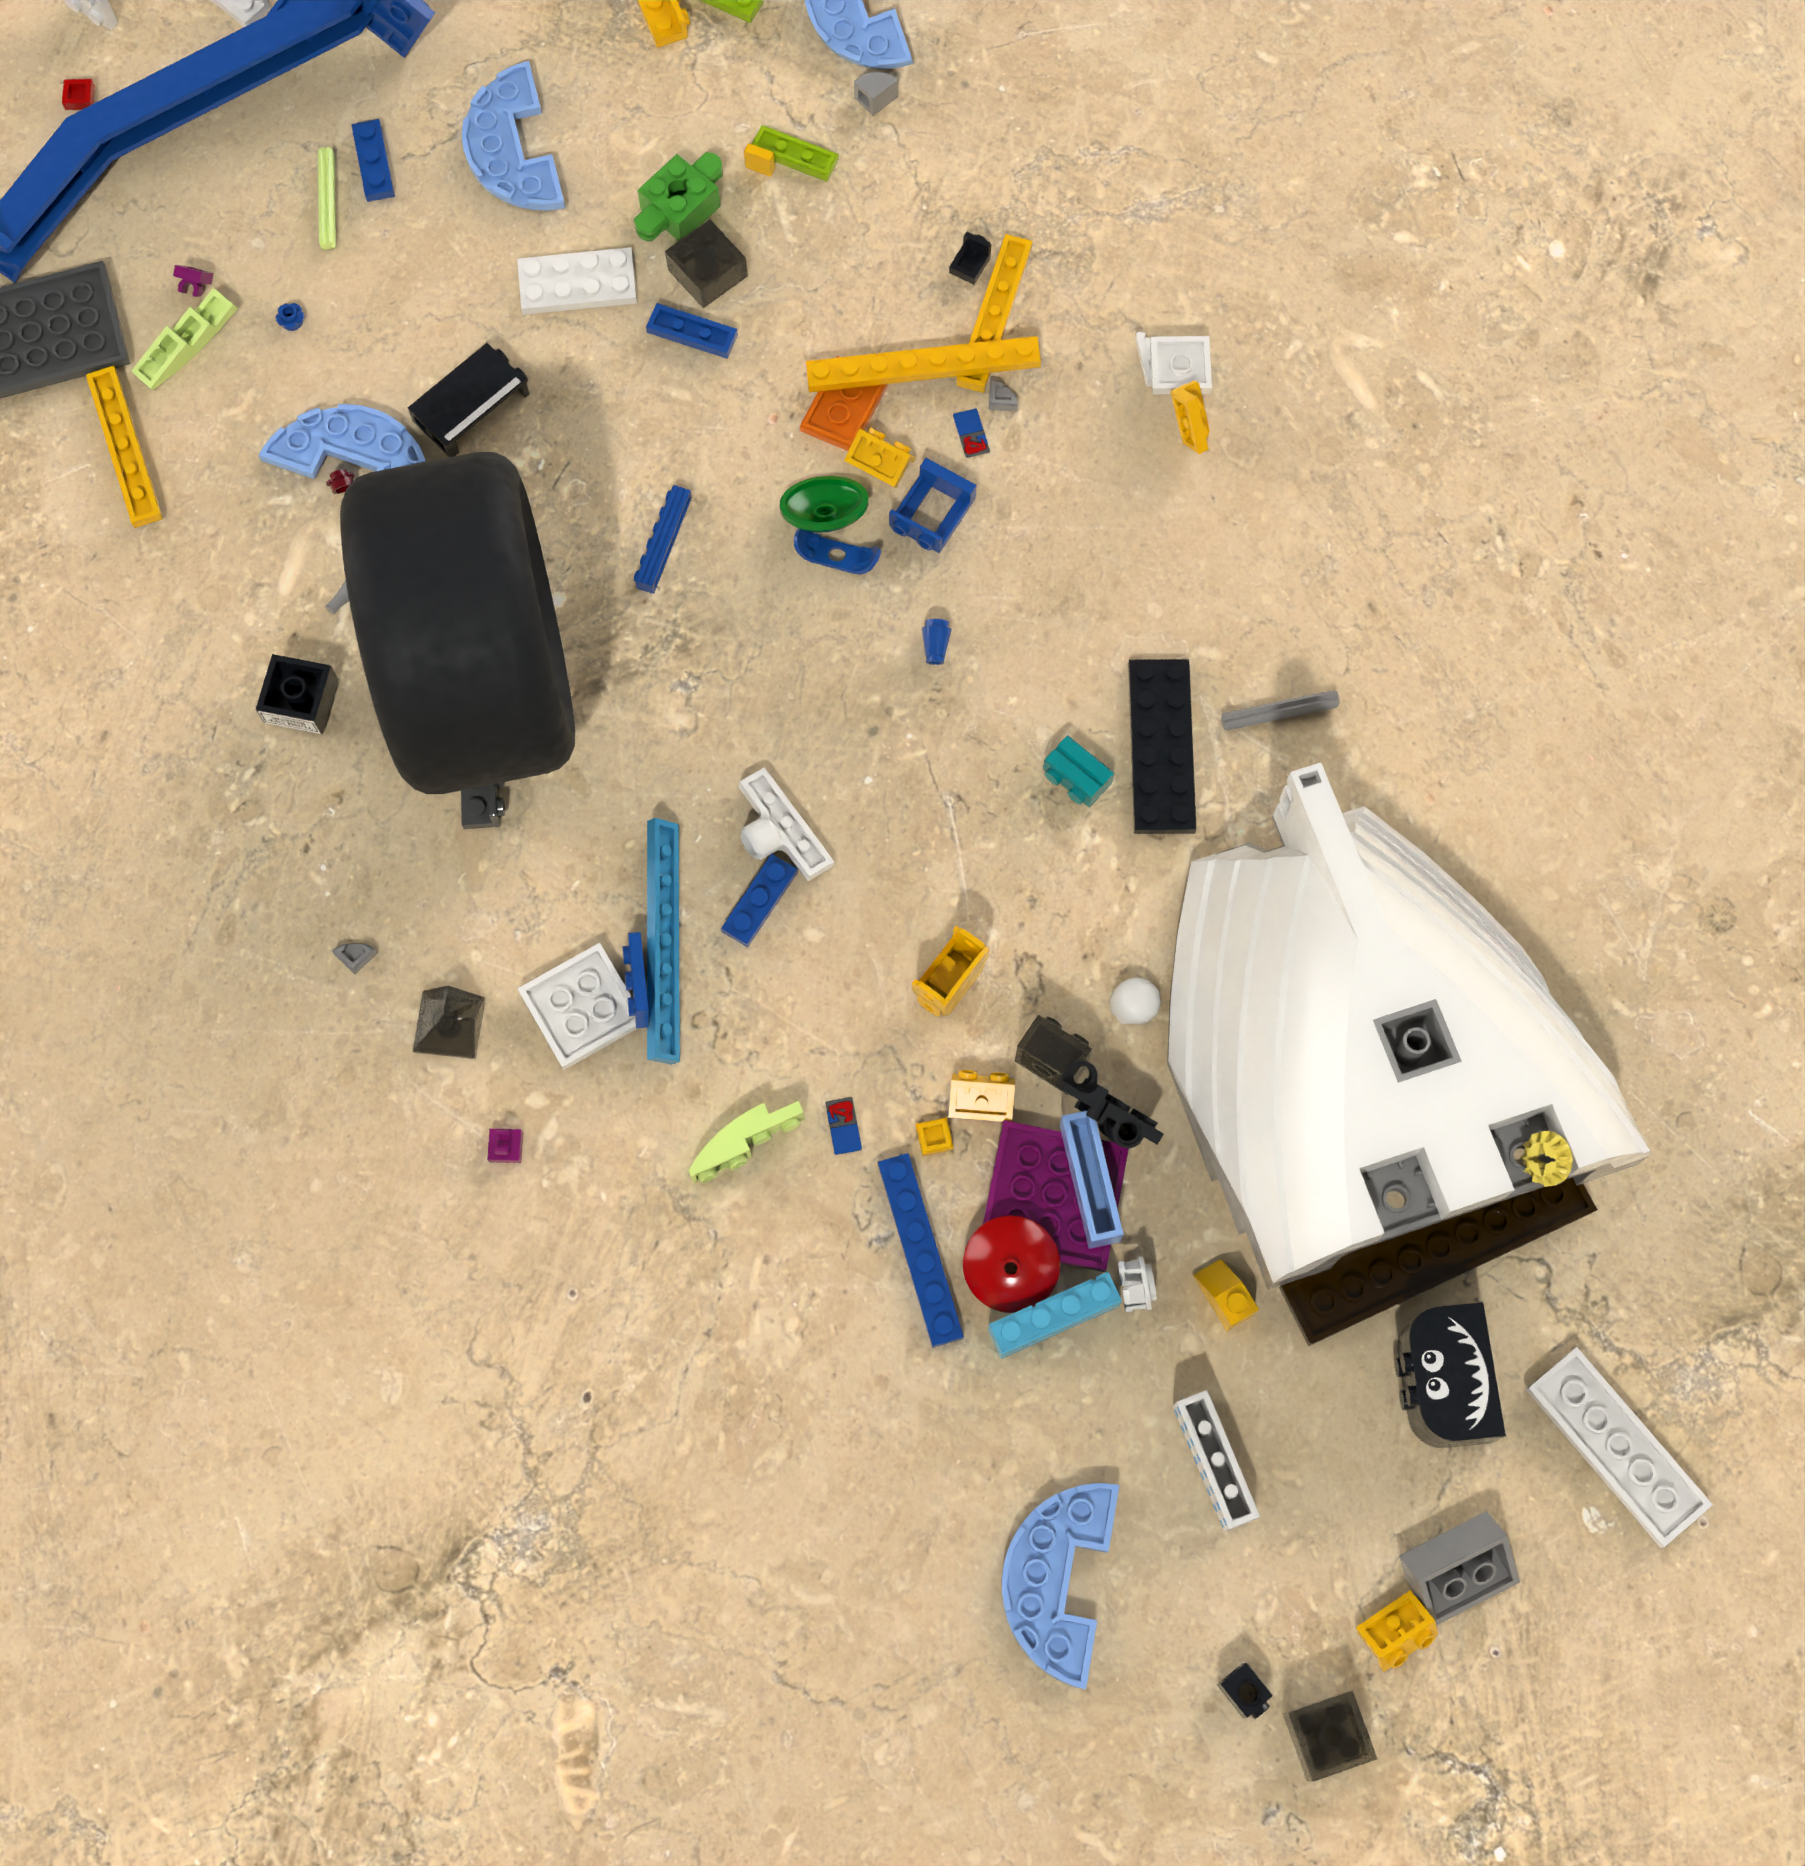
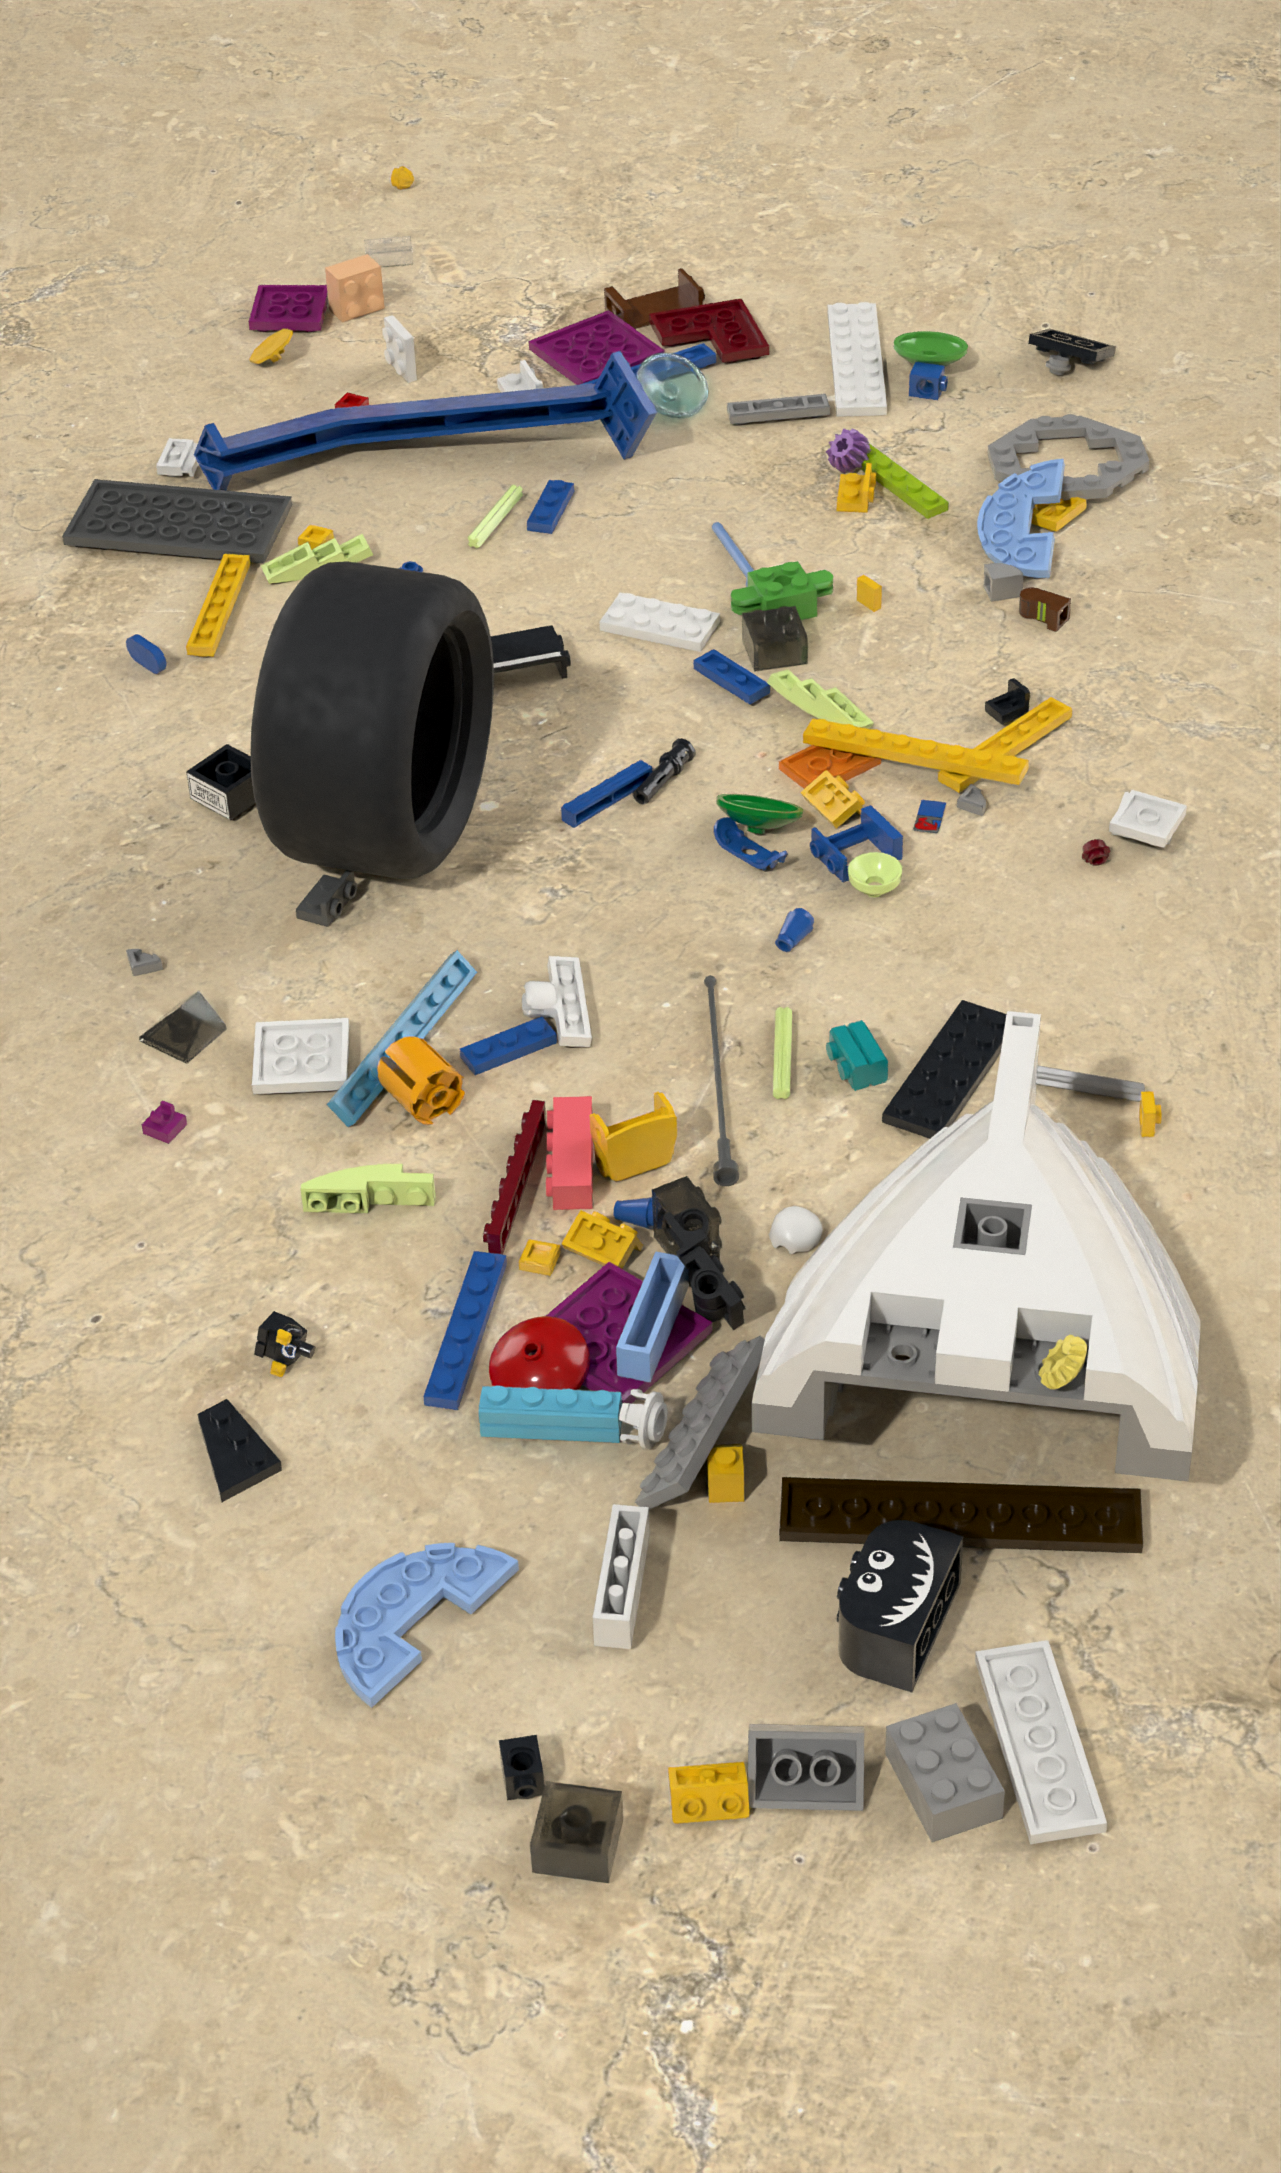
camera: 30 degrees right, 30 degrees down
(95, 549) = (146, 653): none -> blue tile
(163, 308) = (315, 536): none -> yellow plate
(192, 276) = (351, 526): magenta tile -> none
(495, 147) = (655, 522): light blue plate -> none
(597, 154) = (732, 549): none -> medium blue piece
(636, 980) = (357, 1047): blue plate -> none
(701, 475) = (669, 765): none -> black pin
(715, 992) = (420, 1079): none -> light orange cylinder
(778, 1350) = (282, 1341): none -> black piece
(797, 153) = (908, 603): lime tile -> none
(802, 334) = (818, 702): none -> yellowish green slope
(804, 1483) = (235, 1450): none -> black wing
(843, 1125) = (464, 1222): sticker -> none
(868, 1072) = (518, 1171): none -> dark red plate
(896, 1007) = (571, 1153): none -> coral brick
(932, 109) = (1044, 607): none -> reddish brown leg
(971, 526) = (875, 868): none -> yellowish green piece
(994, 1046) = (635, 1212): none -> blue cone
(1007, 795) = (782, 1053): none -> yellowish green axle
(1039, 961) = (725, 1169): none -> dark grey piece
(1147, 420) = (1095, 852): none -> dark red plate
(1189, 1266) = (701, 1424): none -> light grey plate
(1191, 416) = (1135, 853): yellow bracket -> none
(1358, 725) = (1148, 1114): none -> yellow plate
(1569, 1521) = (944, 1772): none -> light grey brick

